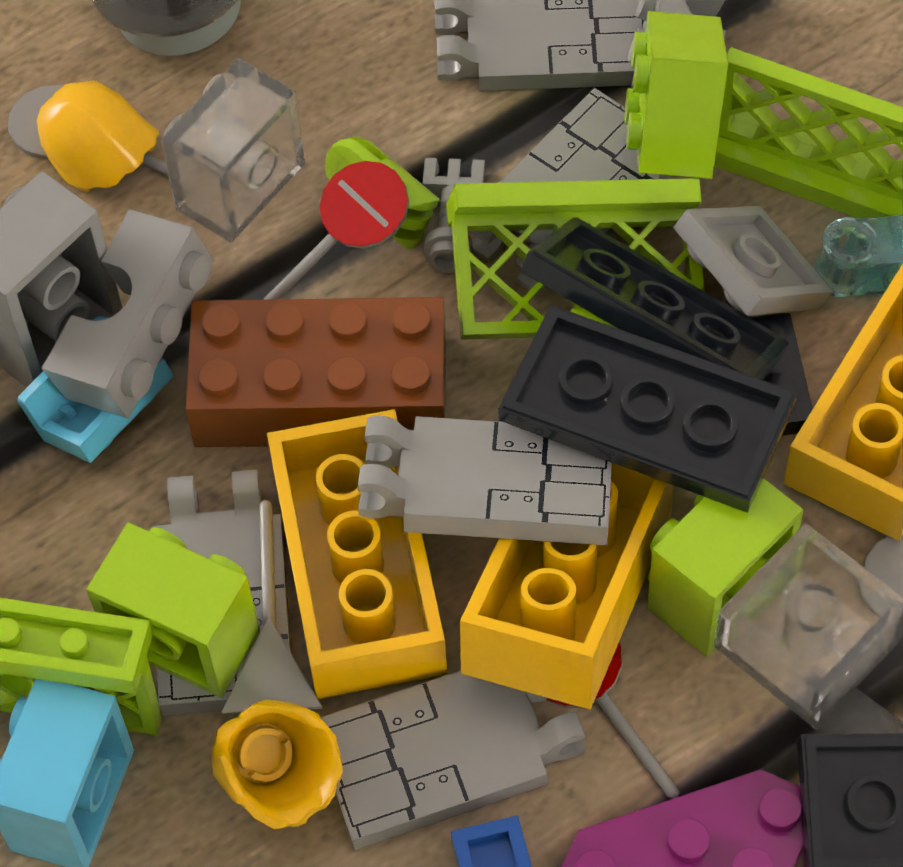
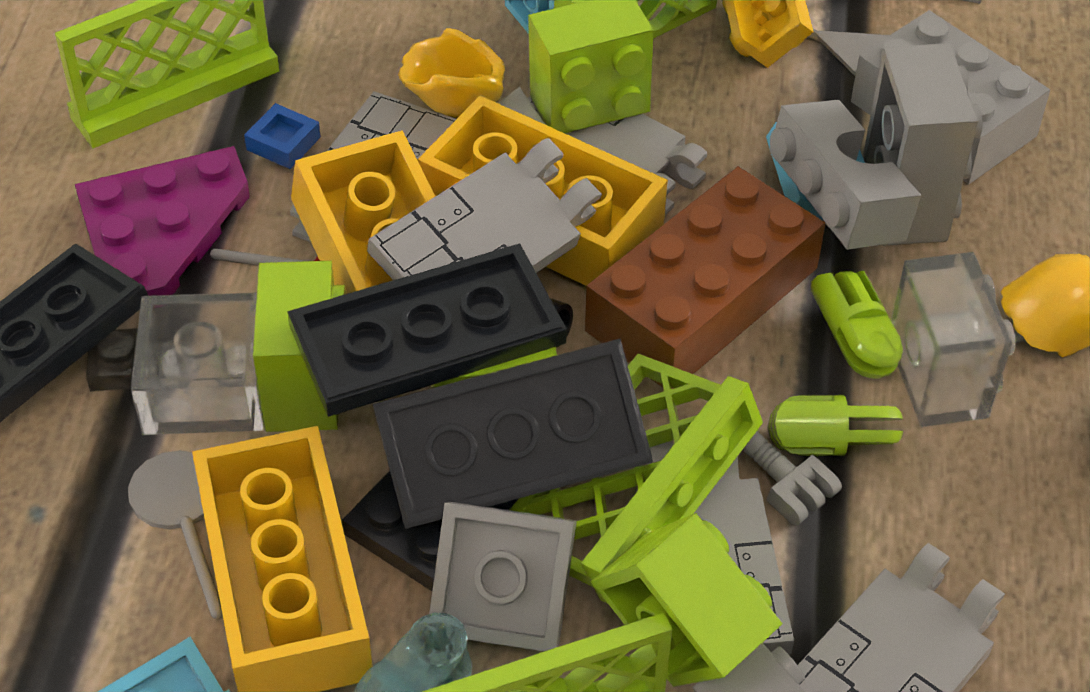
camera: 130 degrees right, 10 degrees down
(255, 243) = (858, 322): none -> lime arm
(359, 209) = (816, 379): red piece -> none

